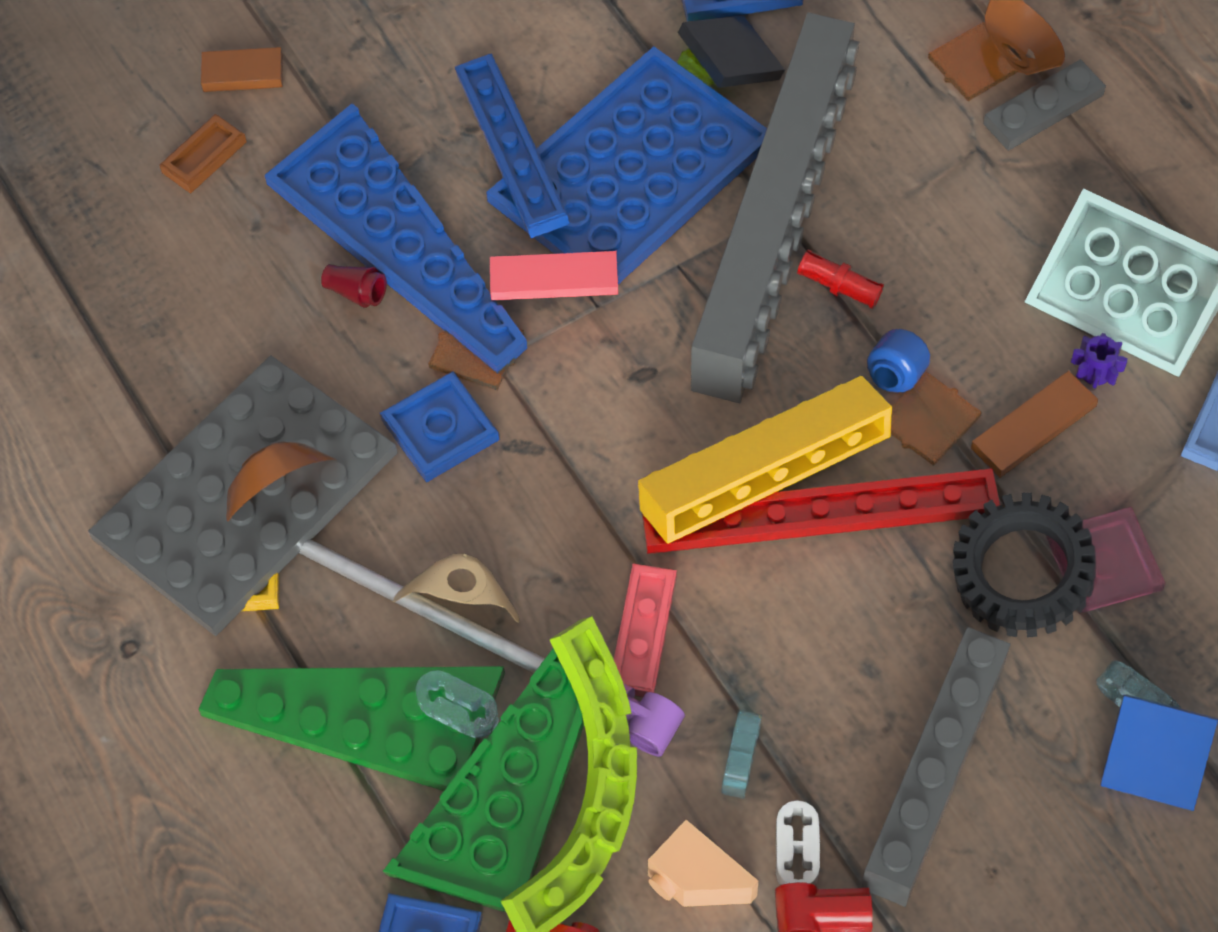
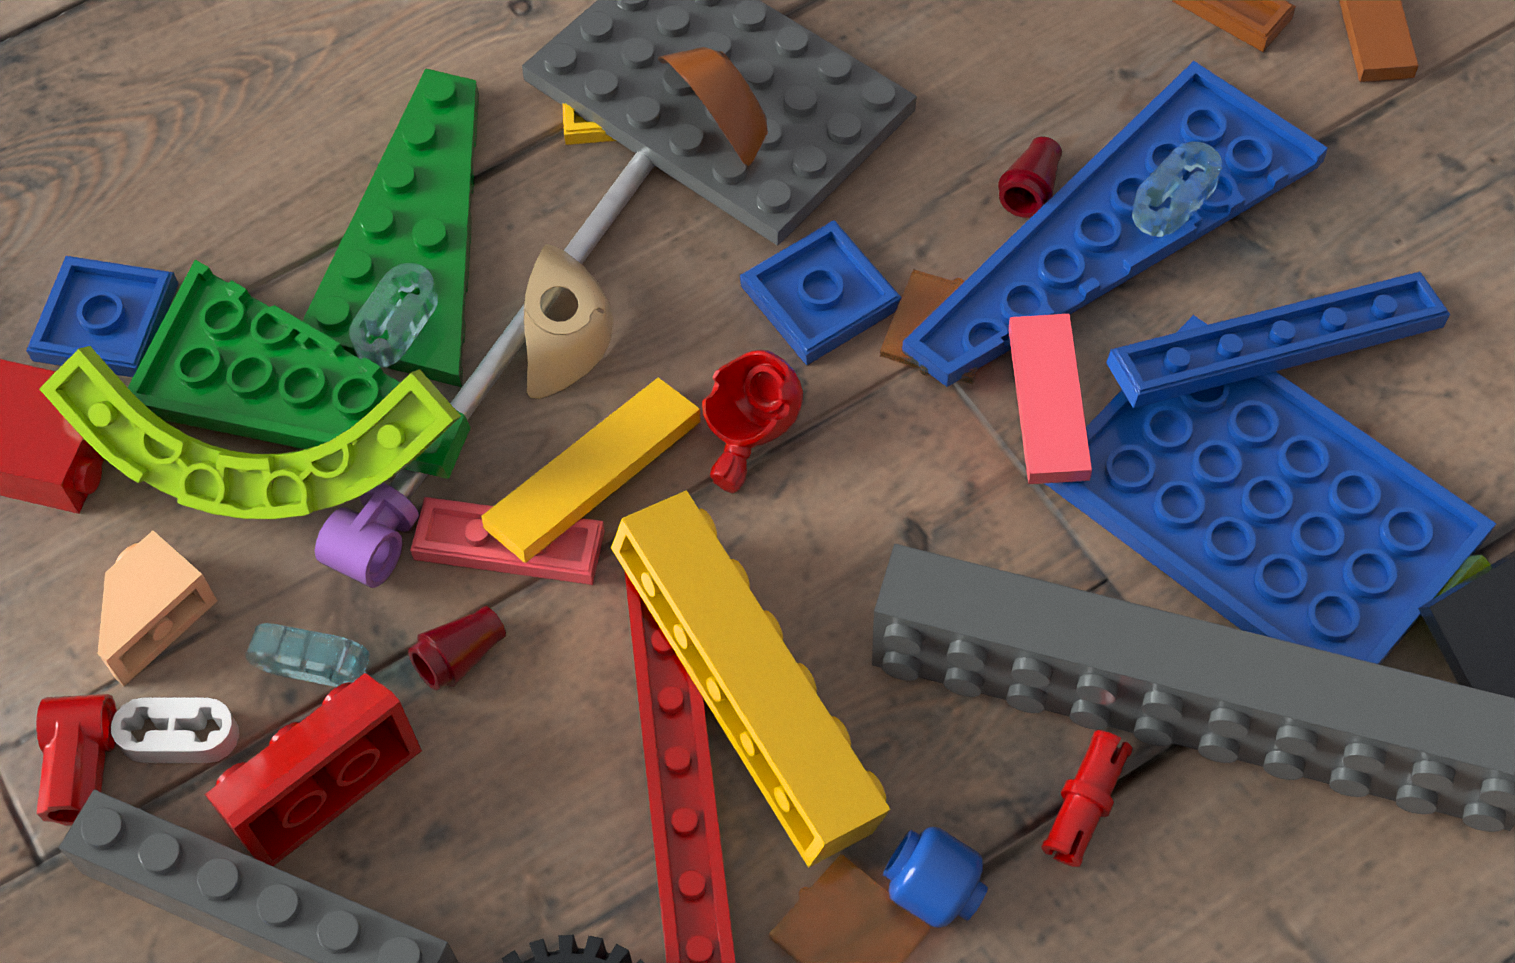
camera: 90 degrees right, 0 degrees up
(390, 184) = (1186, 196): none -> clear light blue beam
(550, 461) = (750, 406): none -> red hair
(592, 568) = (591, 469): none -> yellow tile
(737, 657) = (455, 648): none -> dark red cone
(836, 732) = (315, 769): none -> red slope

